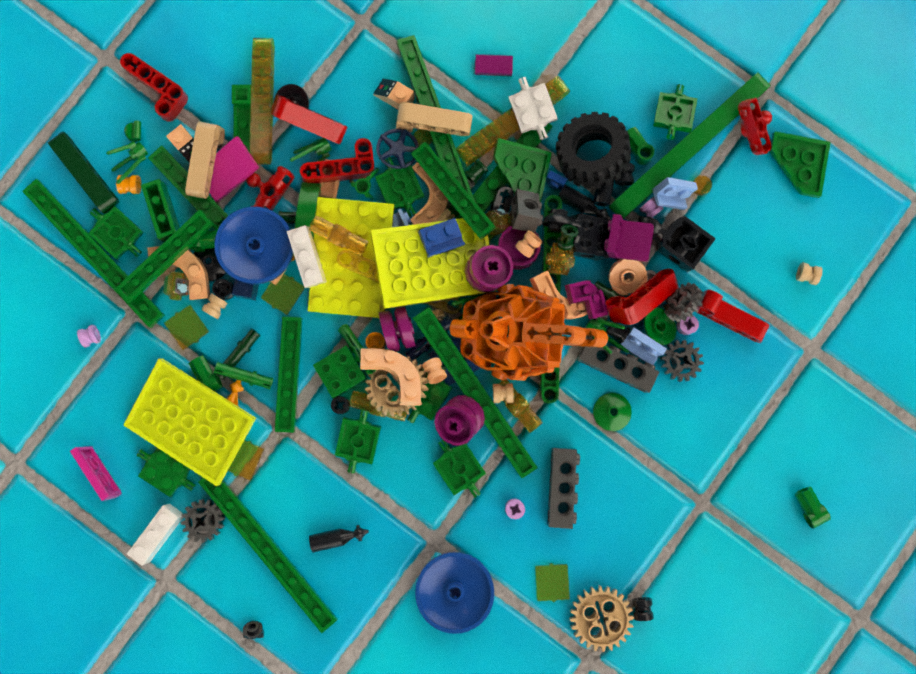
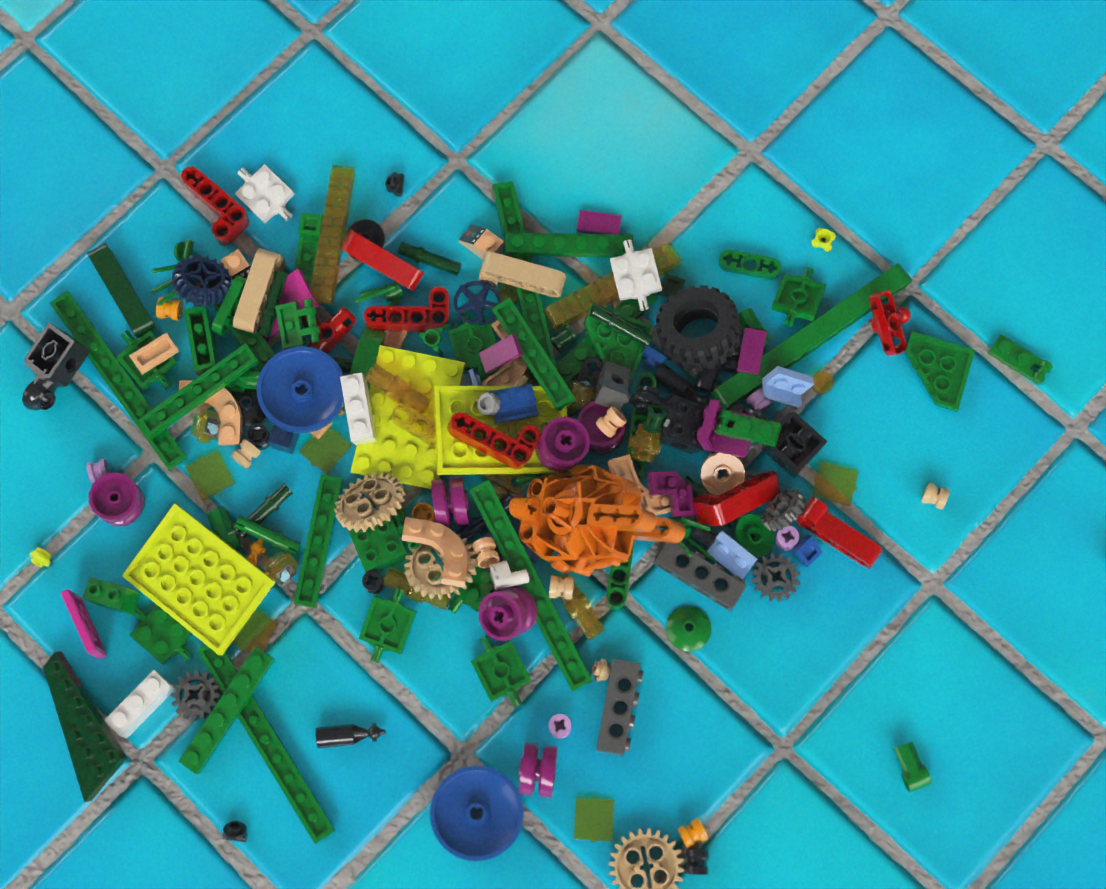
camera: 10 degrees right, 10 degrees down
(34, 245) = (55, 362): none -> black brick
(50, 417) = (40, 557): none -> neon yellow plate
(108, 360) = (109, 489): none -> magenta wheel
(116, 445) = (111, 596): none -> green brick
(117, 571) = (88, 738): none -> dark green wing
(121, 226) = (154, 353): none -> light nougat tile
(151, 157) = (201, 281): none -> dark blue gear
(178, 183) = (228, 307): none -> green beam
(197, 70) = (265, 194): none -> white plate
(218, 170) = (273, 299): none -> dark green pin
(231, 530) = (227, 710): none -> green plate
(237, 188) = (291, 324): none -> green plate
(259, 402) = (281, 567): none -> clear yellow head
(311, 49) = (394, 184): none -> black plate
(317, 347) = (357, 512): none -> tan gear
(343, 111) = (426, 257): none -> dark green pin
(420, 241) = (488, 403): none -> light grey tile
(424, 193) = (501, 353): none -> magenta tile
(427, 269) = (491, 436): none -> red beam
(452, 391) = (503, 578): none -> white piece
(468, 87) = (565, 244): none -> green plate
(502, 550) = (538, 770): none -> magenta wheel
(517, 152) = (625, 328): none -> dark green pin
(544, 457) = (601, 670): none -> tan plate
(564, 114) = (670, 285): none -> dark green plate
(634, 81) = (764, 273): none -> green beam
(636, 585) = (692, 833): none -> light orange wheel
(641, 165) = (751, 351): none -> magenta tile
(648, 236) = (748, 428): none -> green plate
(694, 54) = (823, 233): none -> neon yellow plate
(705, 334) = (807, 550): none -> blue plate
(722, 272) = (835, 483): none -> clear yellow piece
(868, 145) = (1020, 359): none -> green plate

